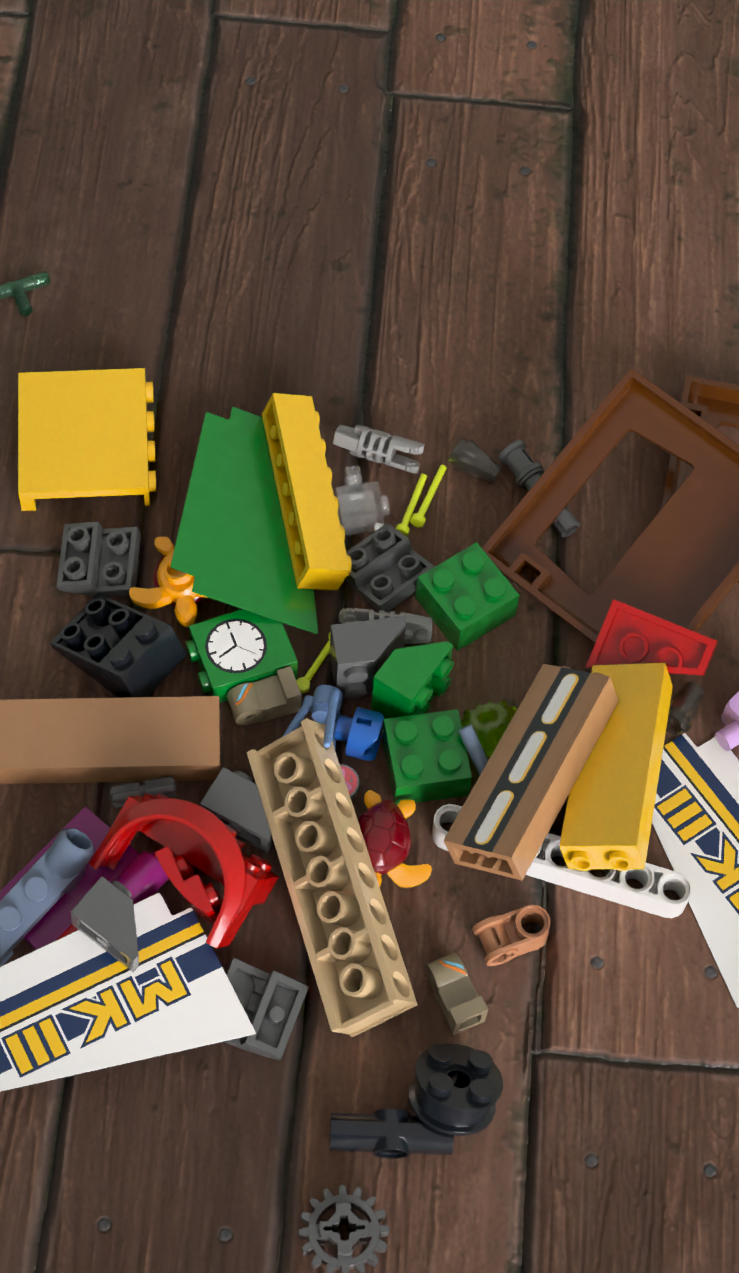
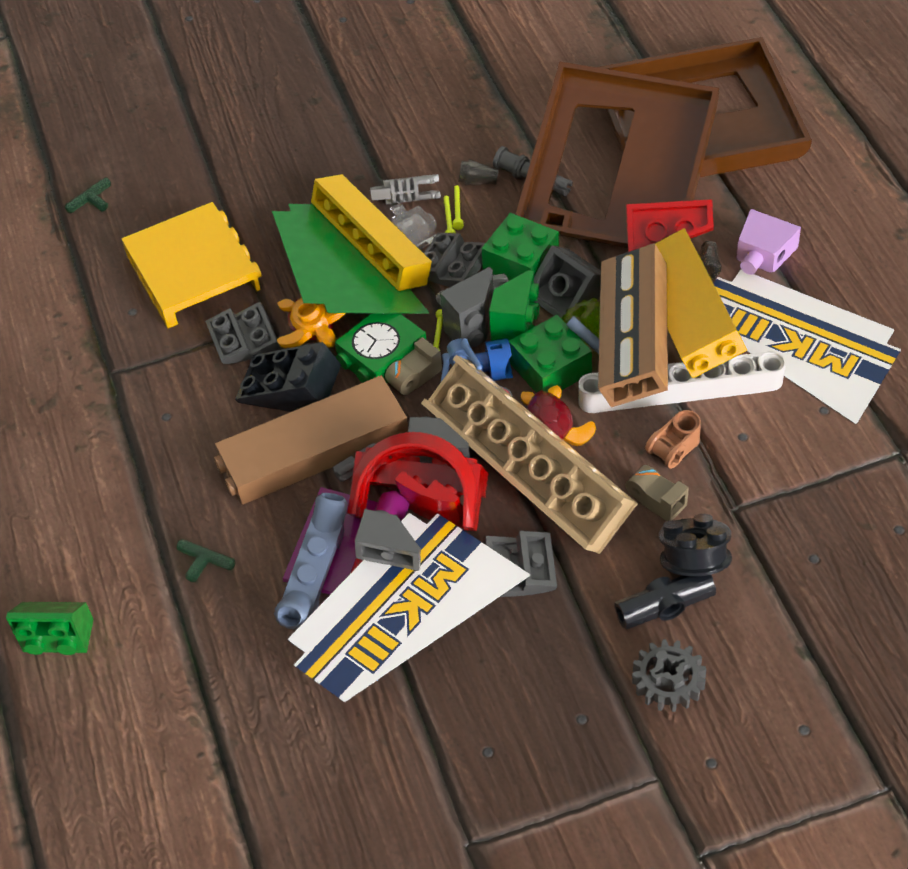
camera: 15 degrees left, 10 degrees down
(496, 662) = (565, 280): none -> dark grey slope

